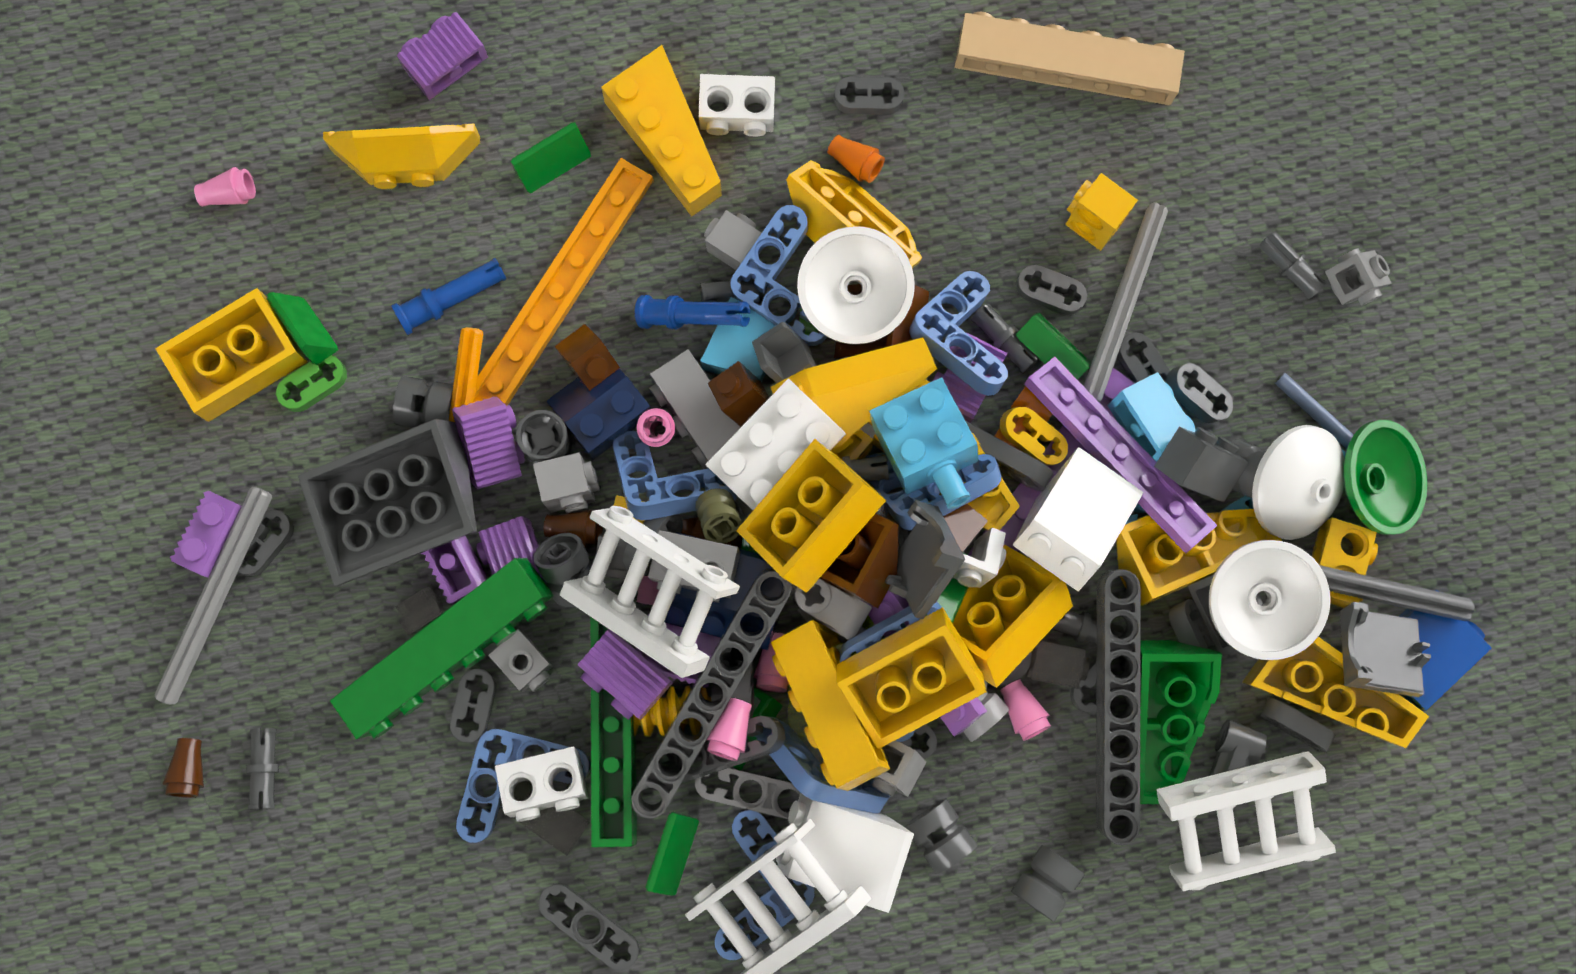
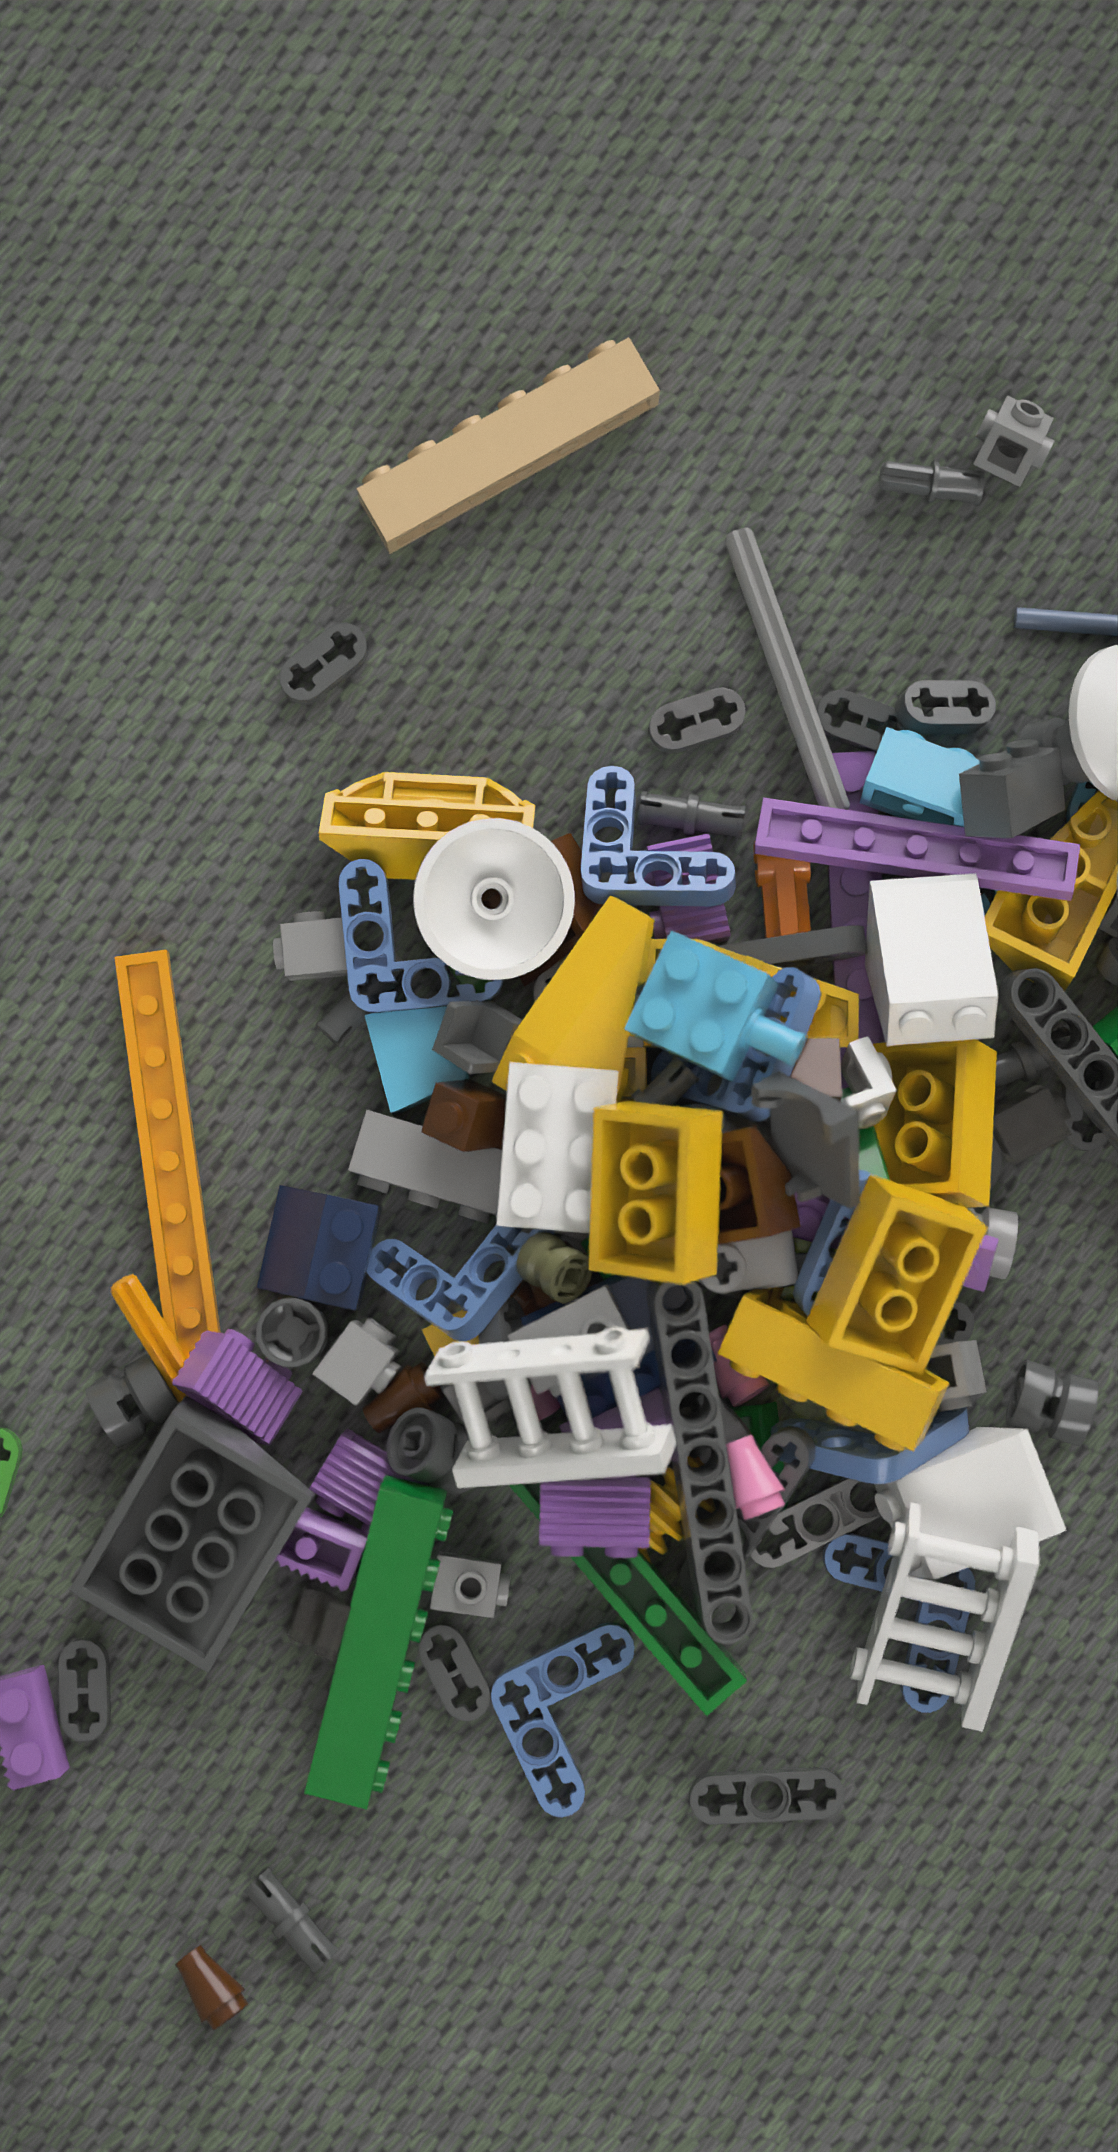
camera: 35 degrees left, 5 degrees up
(213, 596) = (84, 1787): light grey axle -> none
(432, 303) = (45, 1285): blue pin -> none
(540, 772) = (588, 1685): white brick -> none
(550, 158) = (38, 1019): green slope -> none
(554, 827) = (625, 1721): clear smoke slope -> none
(587, 356) = (264, 1206): reddish brown brick -> none
(647, 423) = (398, 1236): bright pink cone -> none
(660, 123) = (125, 883): yellow wedge -> none
(672, 854) = (790, 1651): green slope -> none
(676, 312) = (319, 1079): blue pin -> none
(737, 94) = (181, 782): white brick -> none
(857, 158) = (369, 746): orange cone -> none
(1025, 711) = (1034, 1199): bright pink cone -> none
(1039, 429) = (809, 890): yellow beam -> none
(1049, 342) = (745, 782): green slope -> none
(1099, 210) = (681, 595): yellow brick -> none

